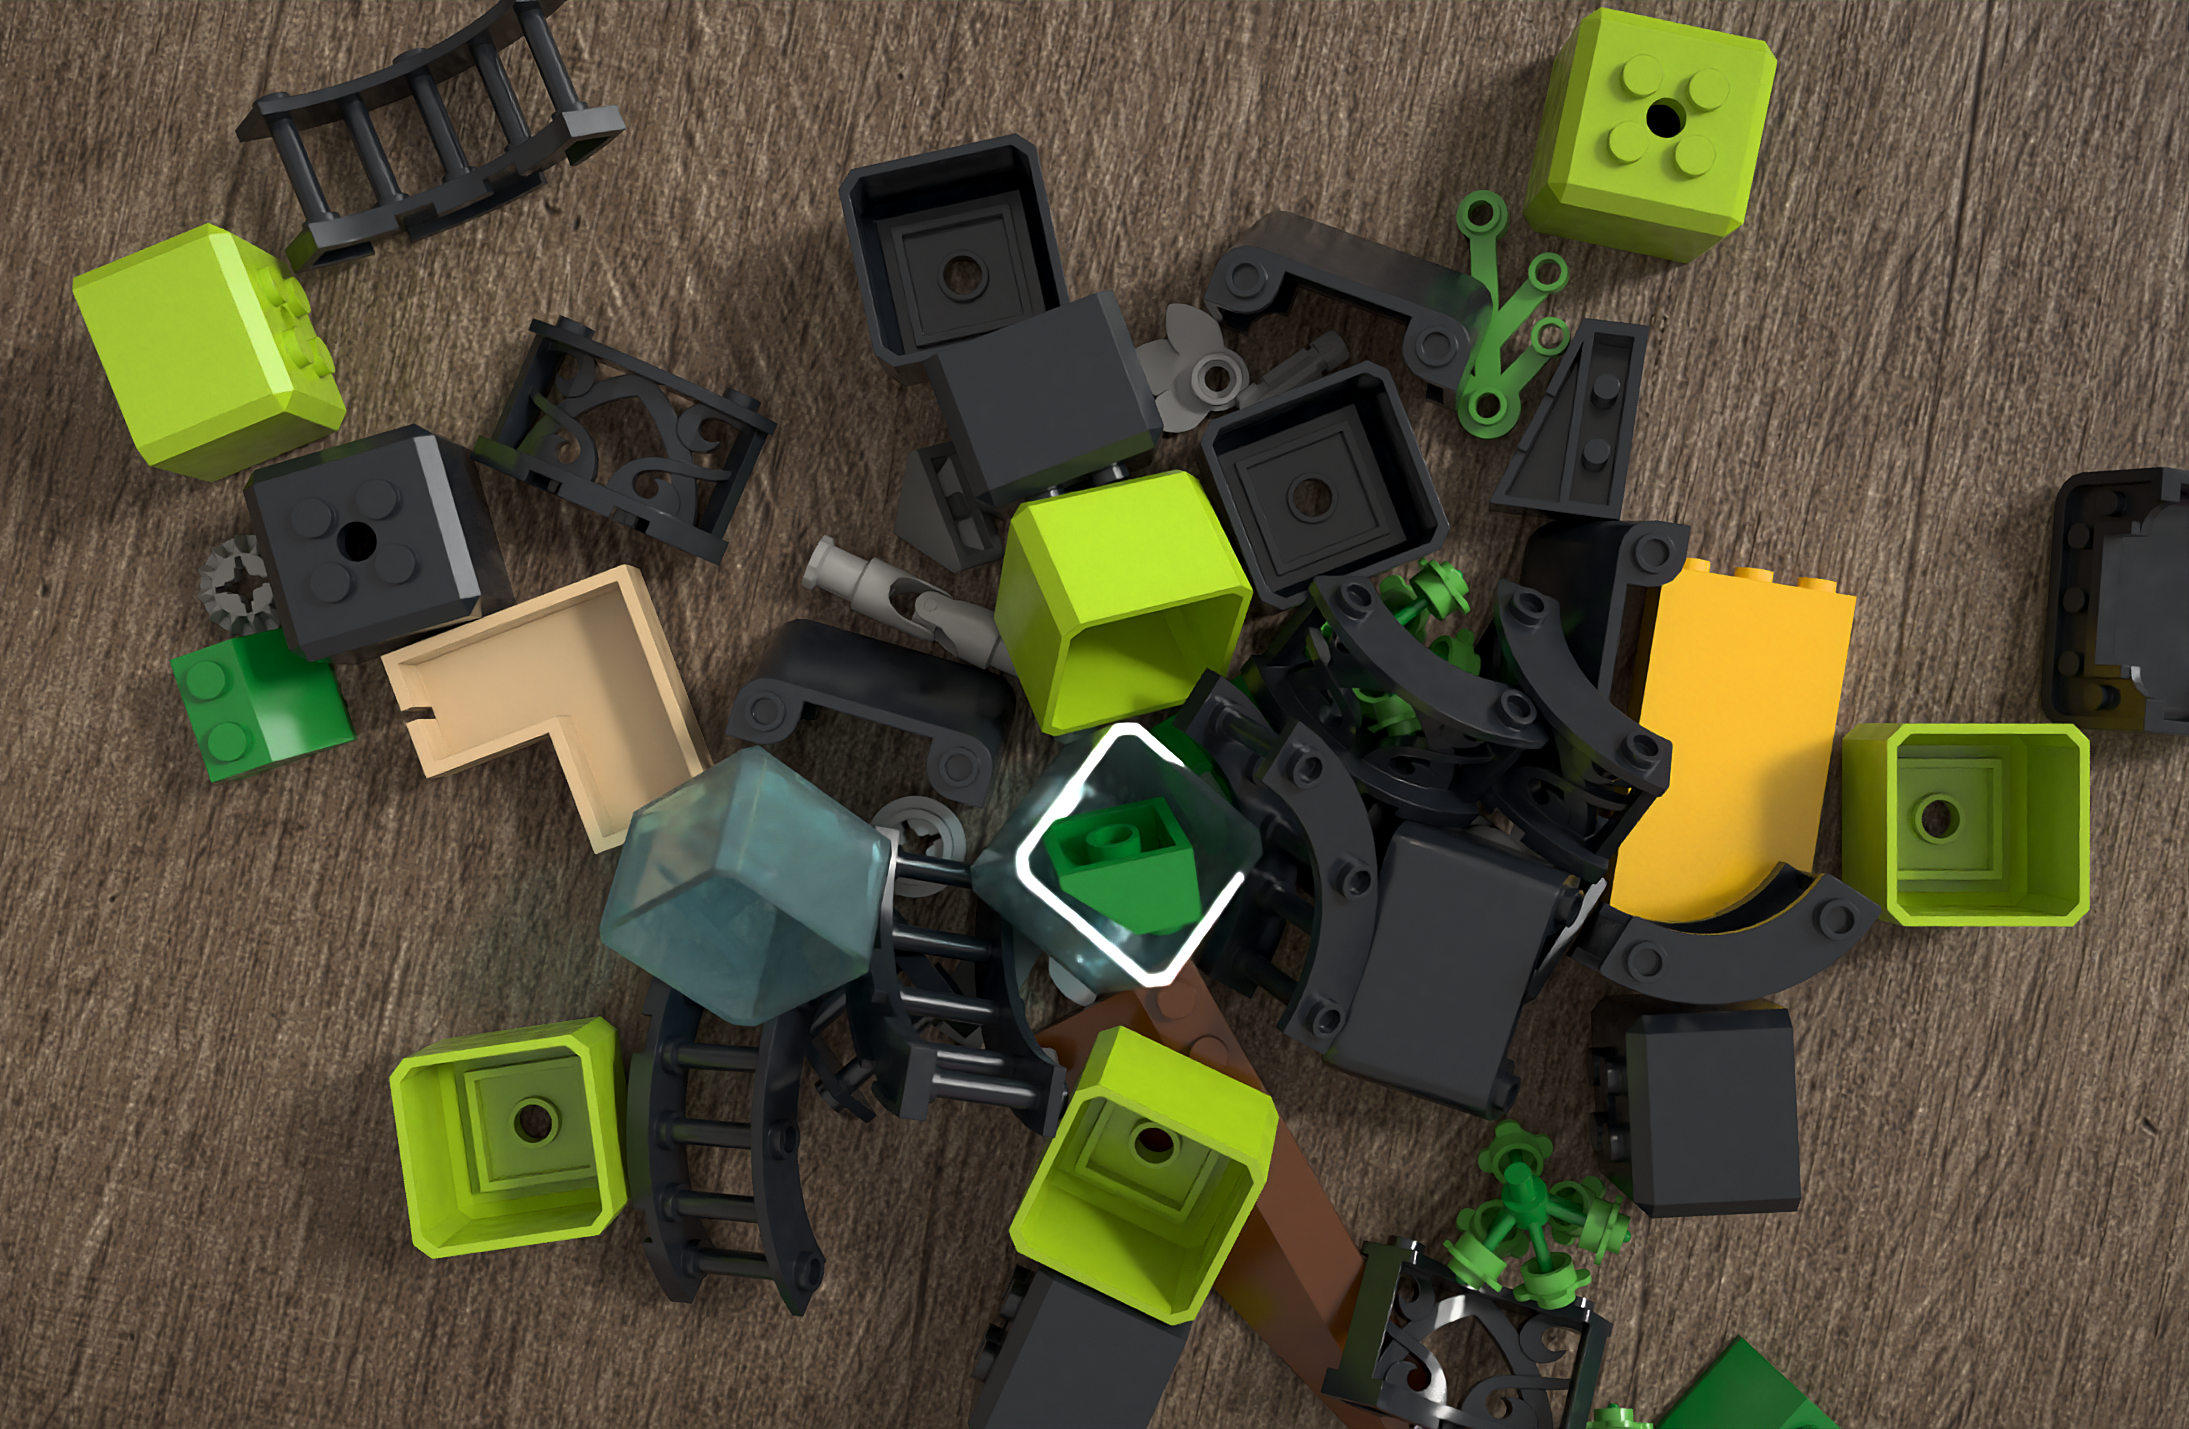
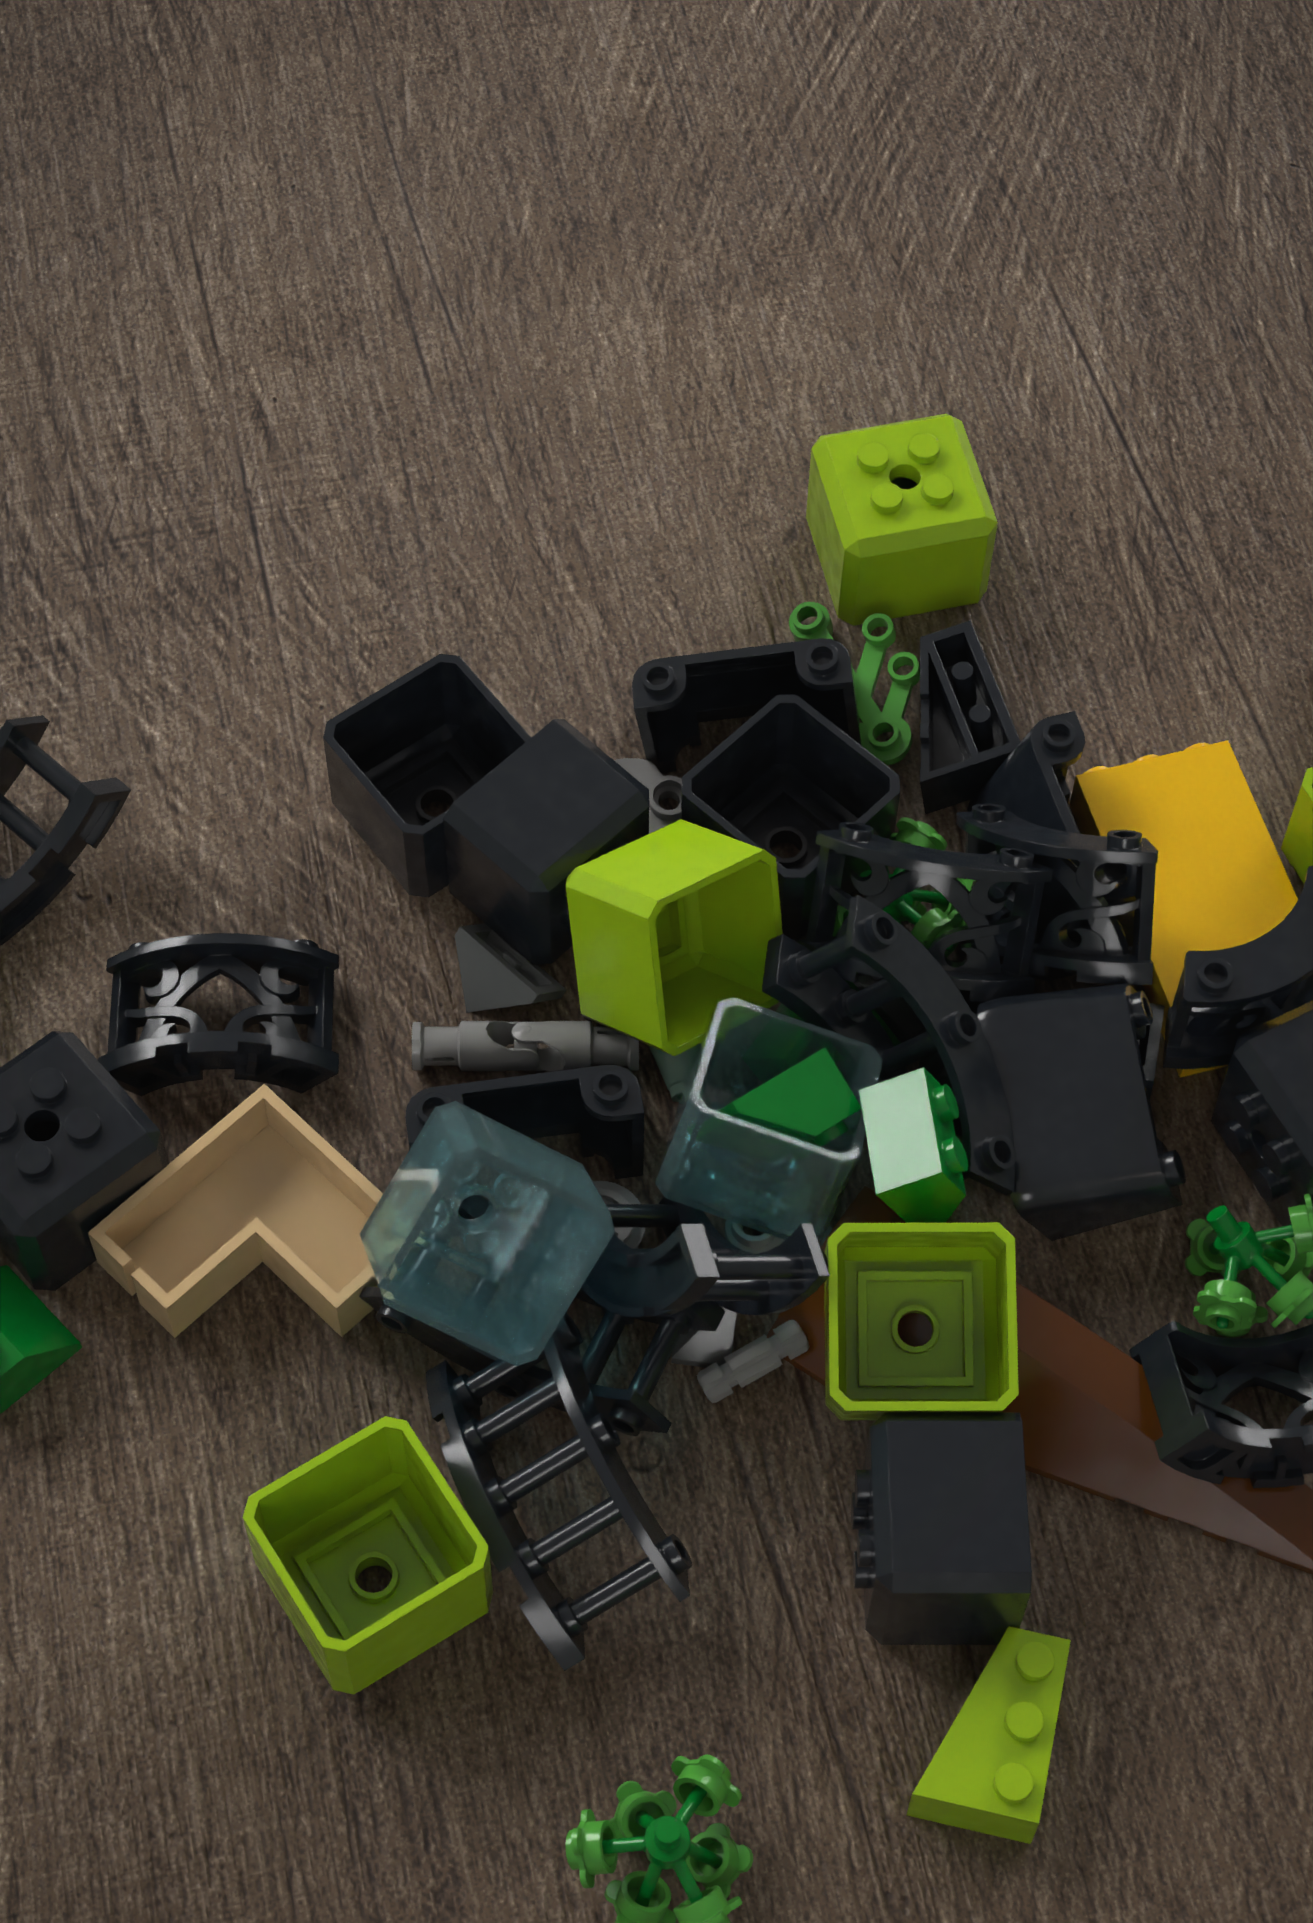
camera: 25 degrees left, 30 degrees down
(1234, 990) = (915, 1146): none -> slope

